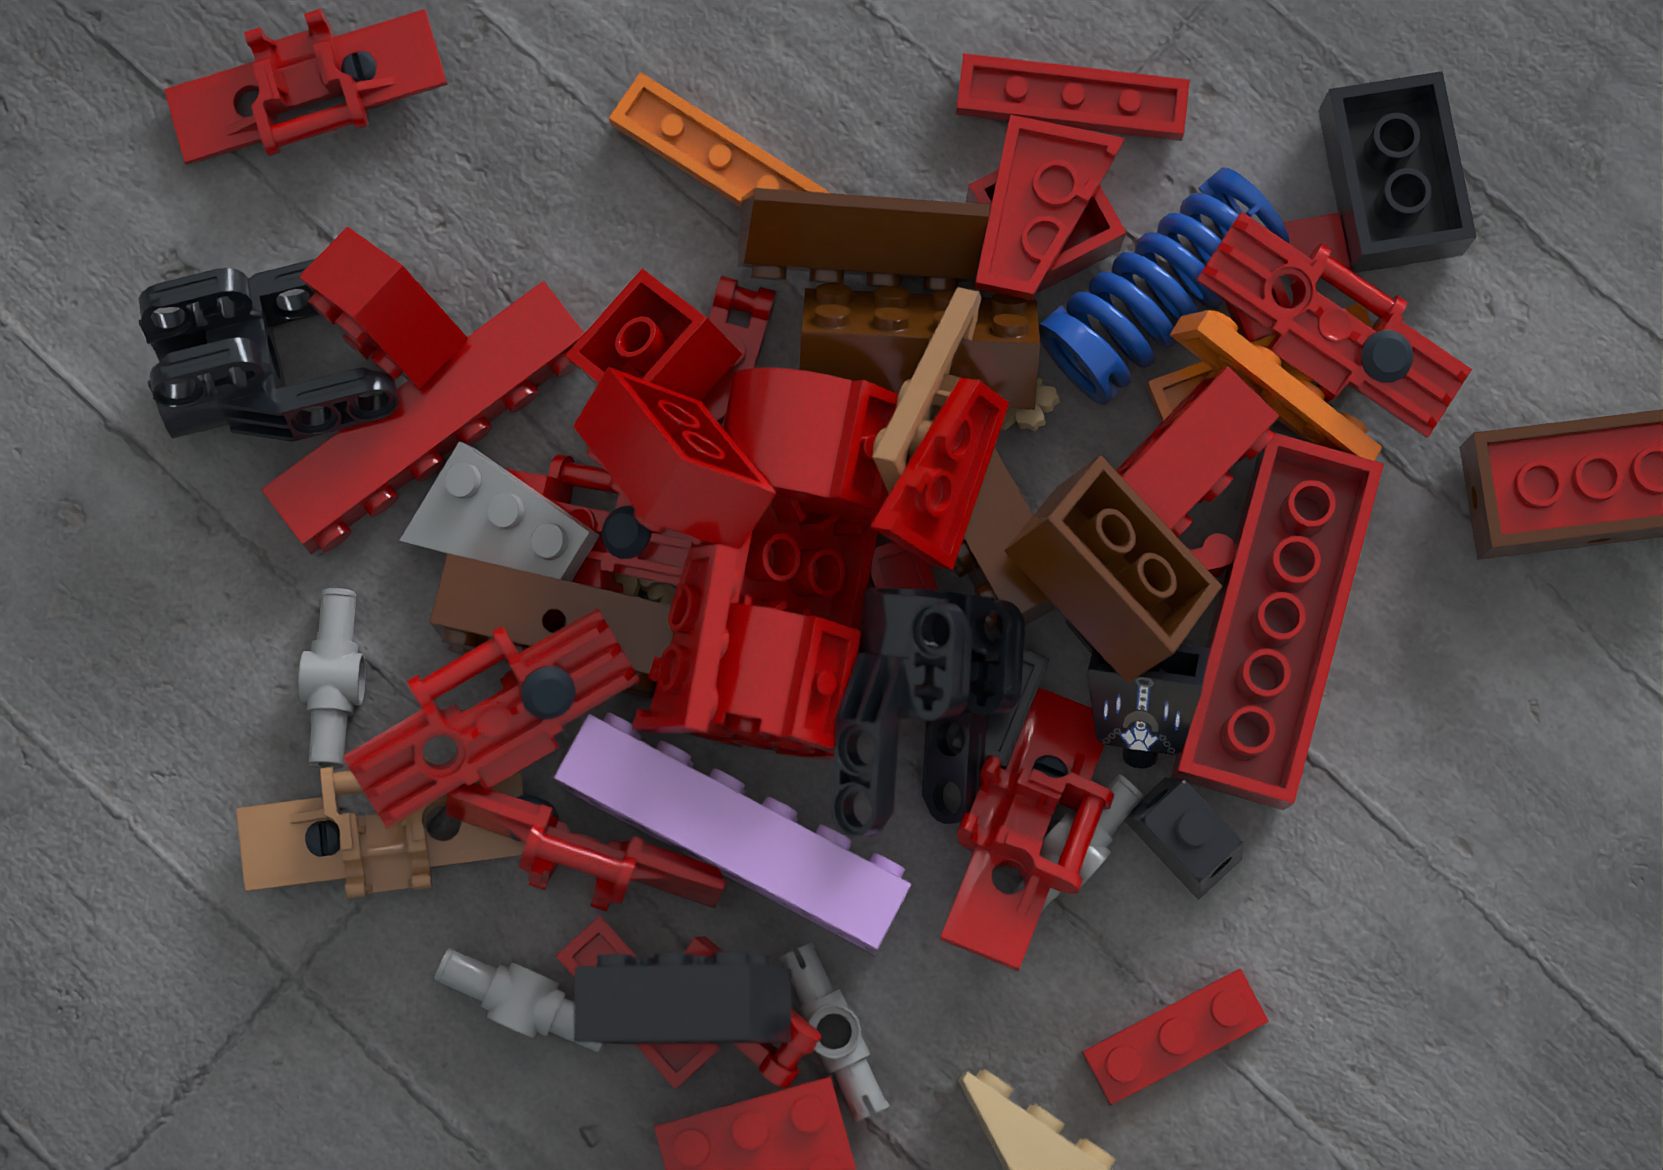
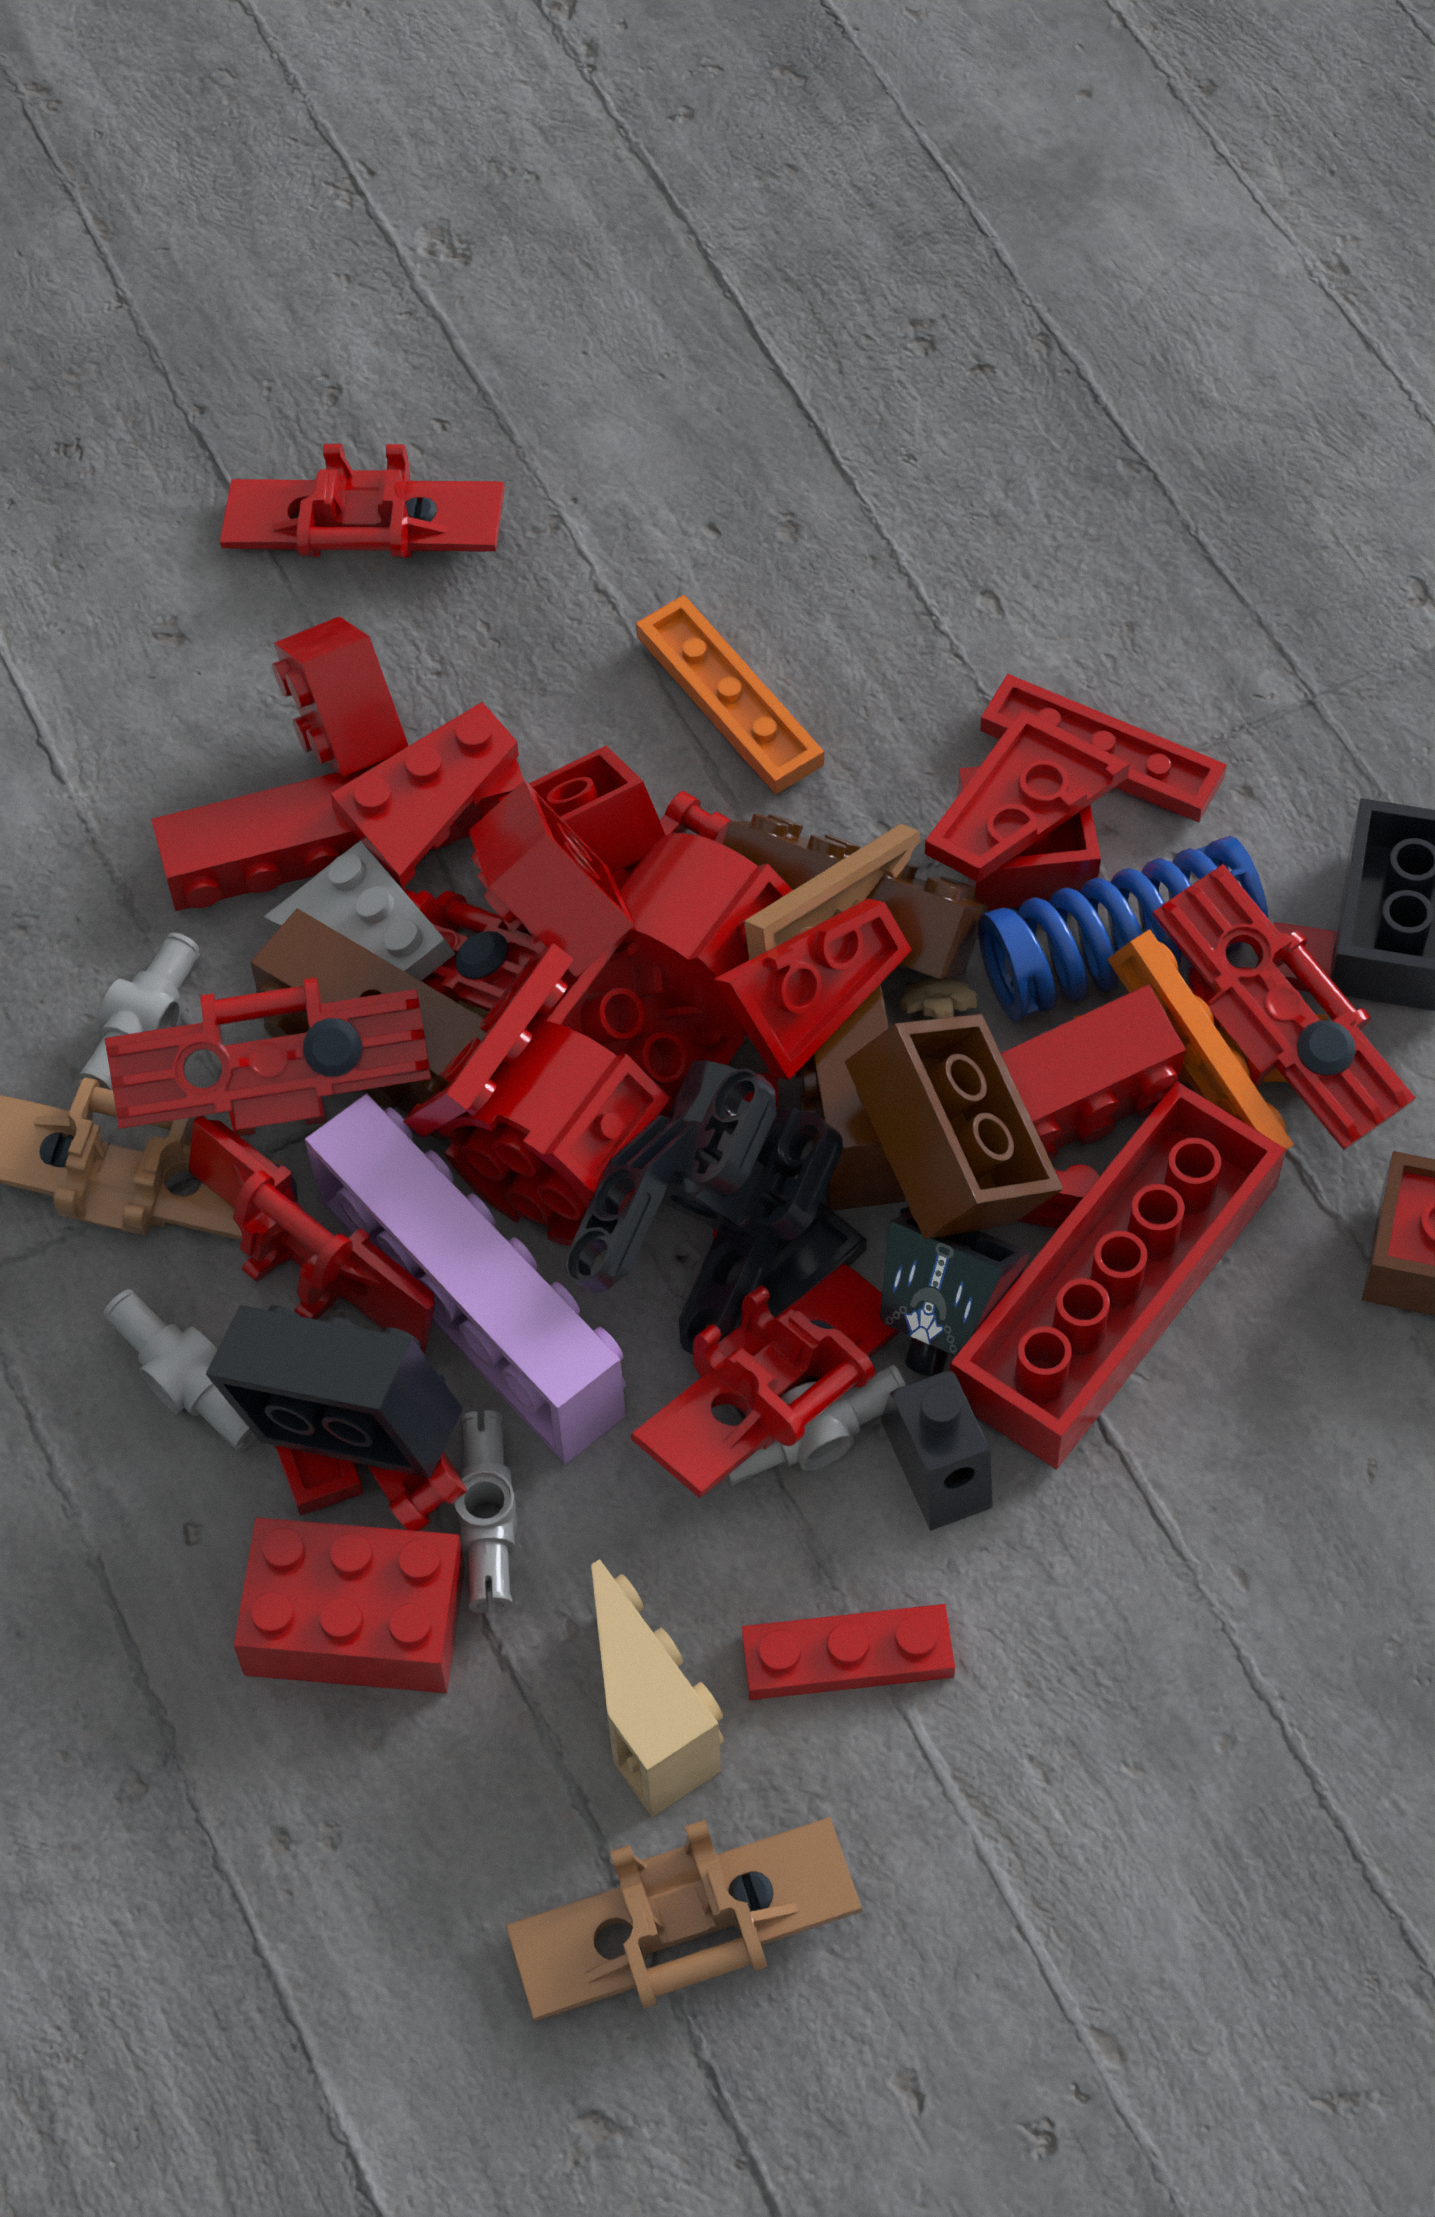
camera: 25 degrees right, 20 degrees down
(226, 363) = (177, 699): black piece -> none
(498, 374) = (419, 792): none -> red wing
(860, 237) = (825, 772): reddish brown slope -> none

